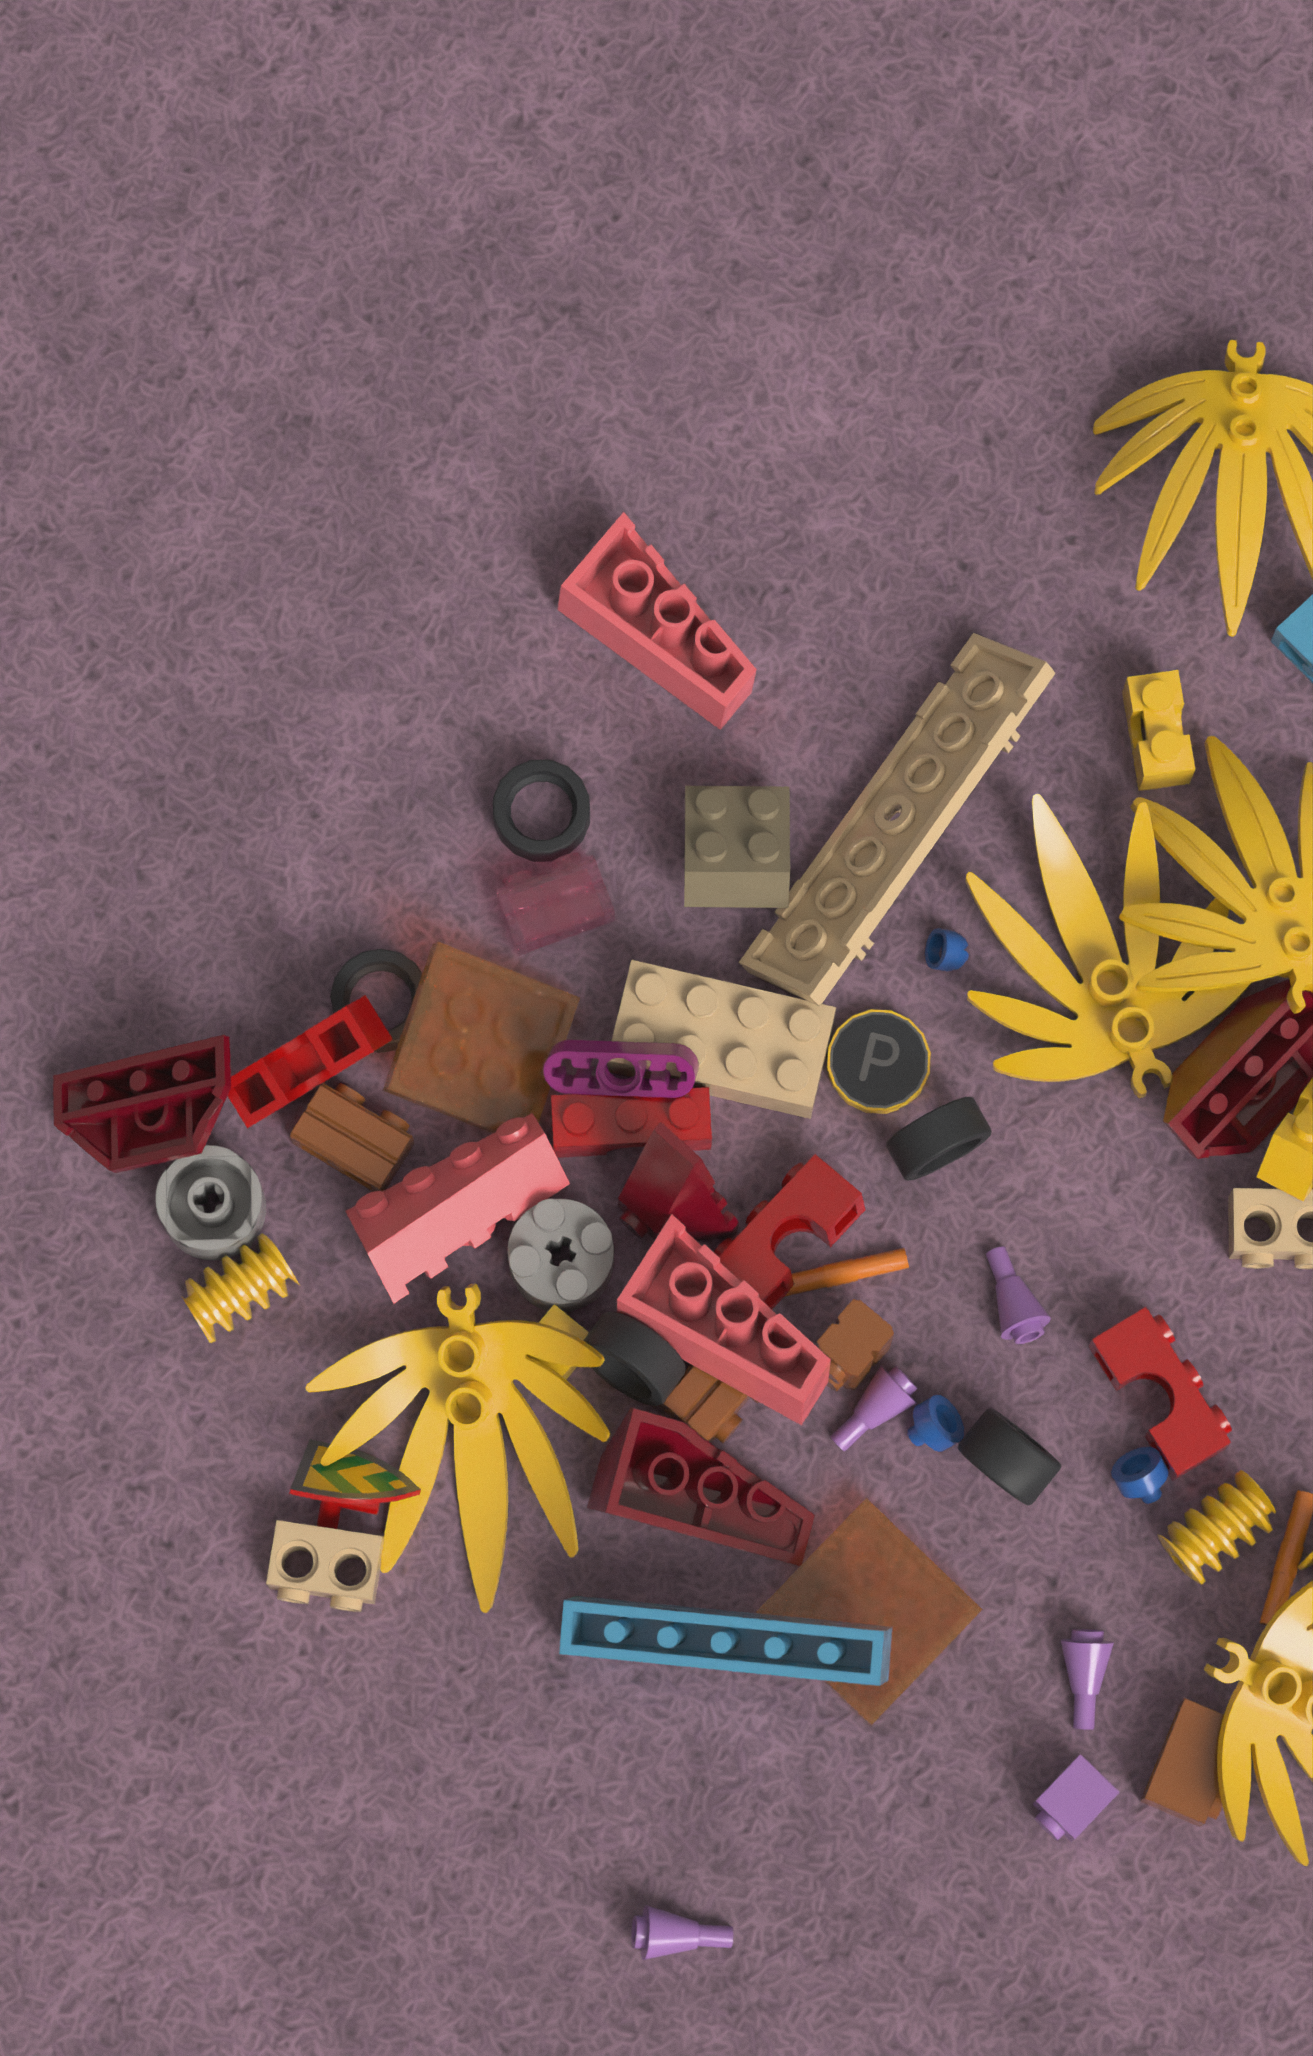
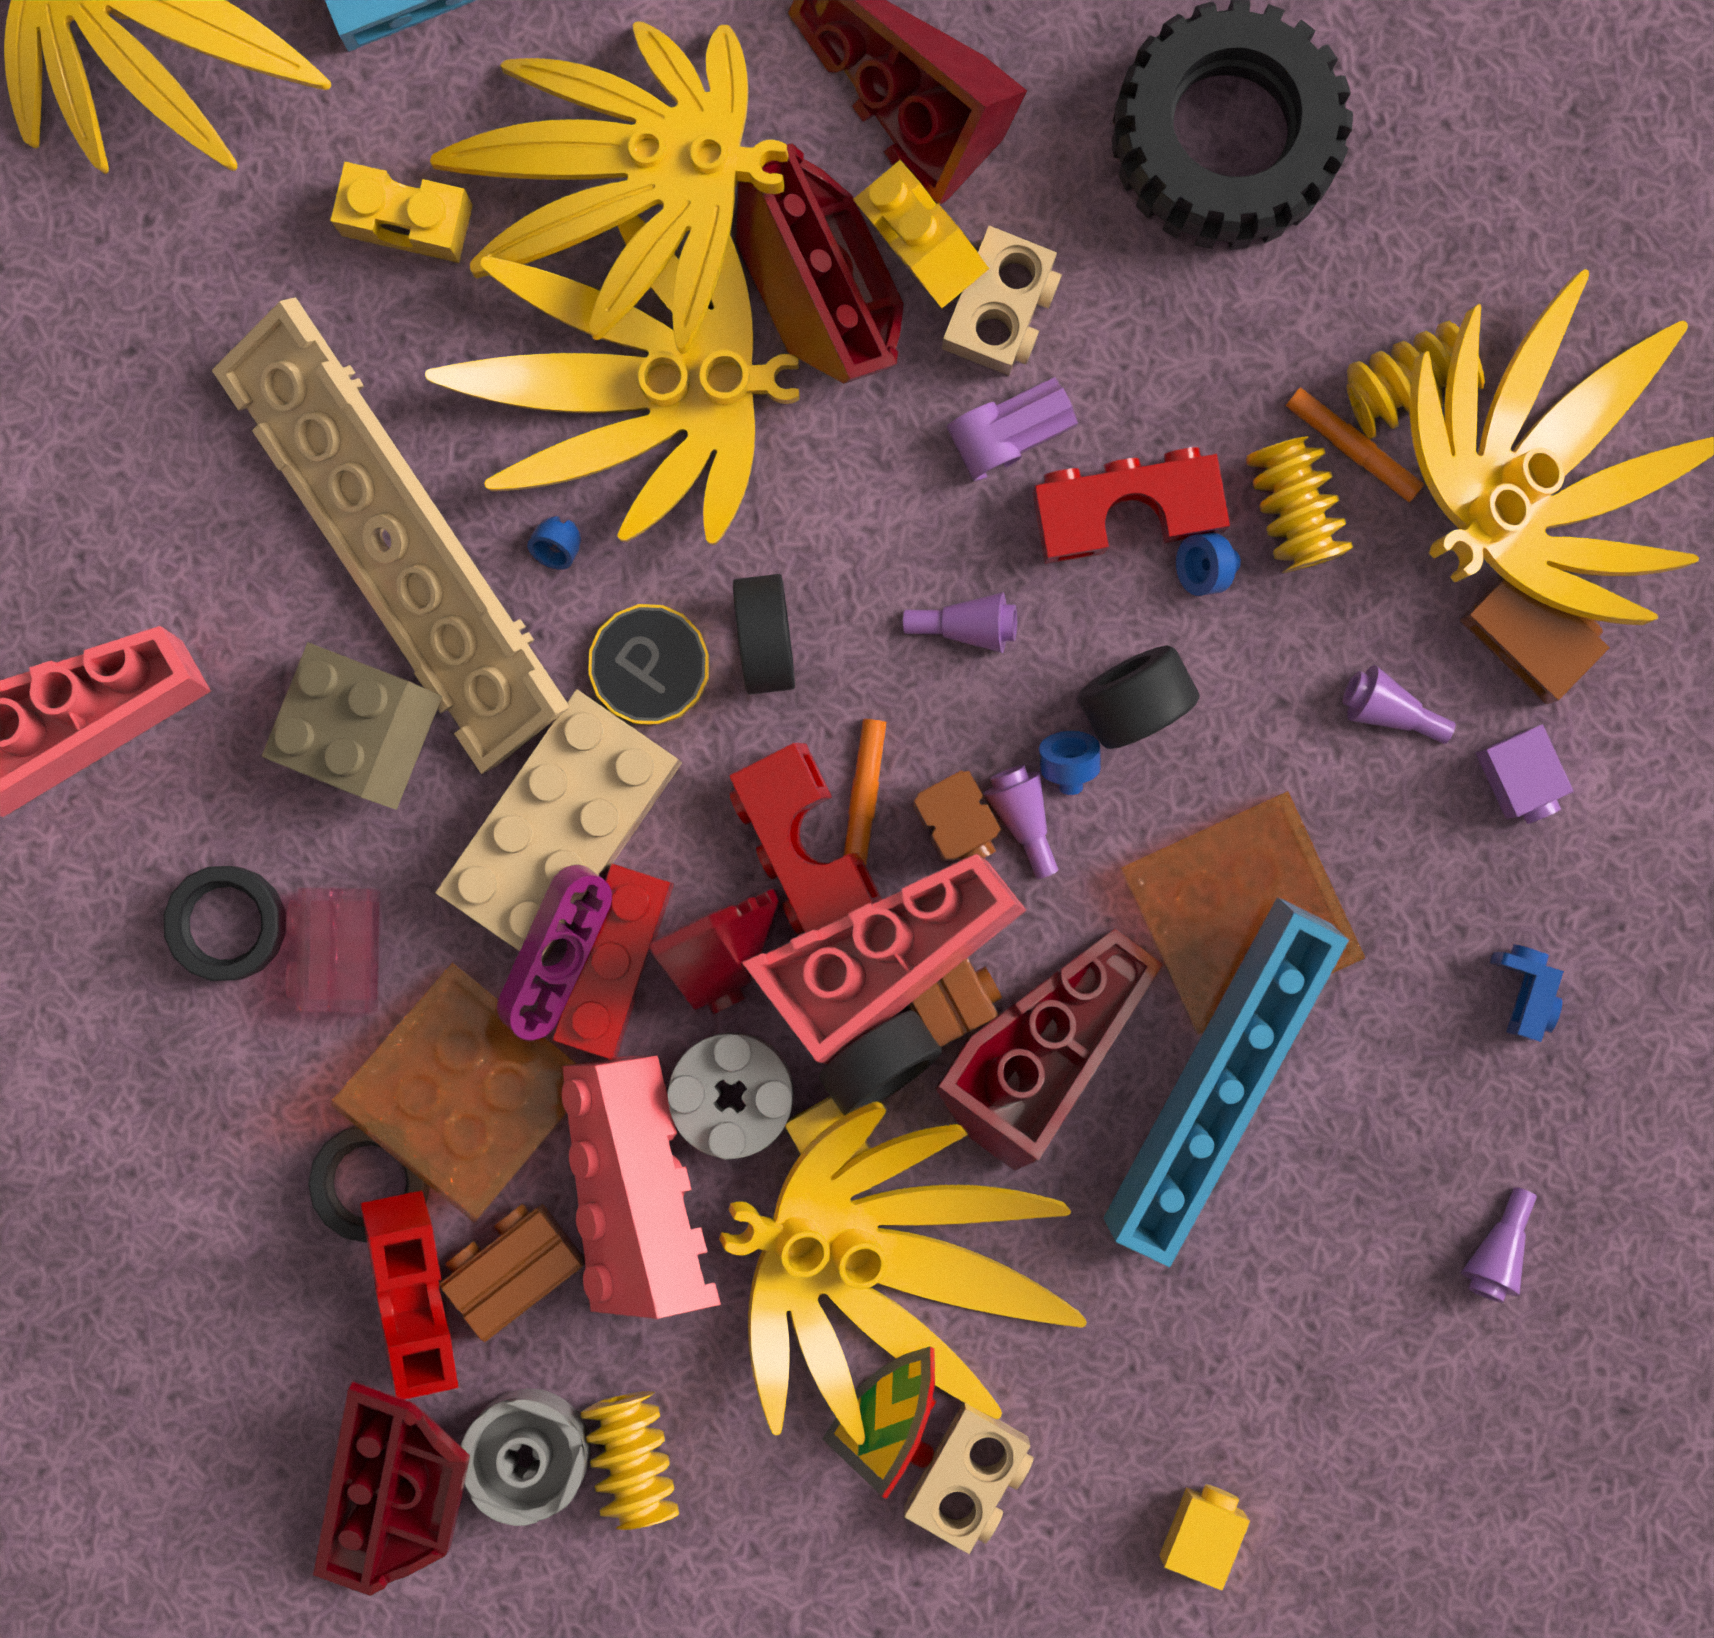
camera: 65 degrees left, 10 degrees up
(350, 1775) = (1205, 1536): none -> yellow brick
(888, 1883) = (1536, 1004): none -> blue bracket
(1178, 1268) = (1005, 431): none -> medium lavender piece

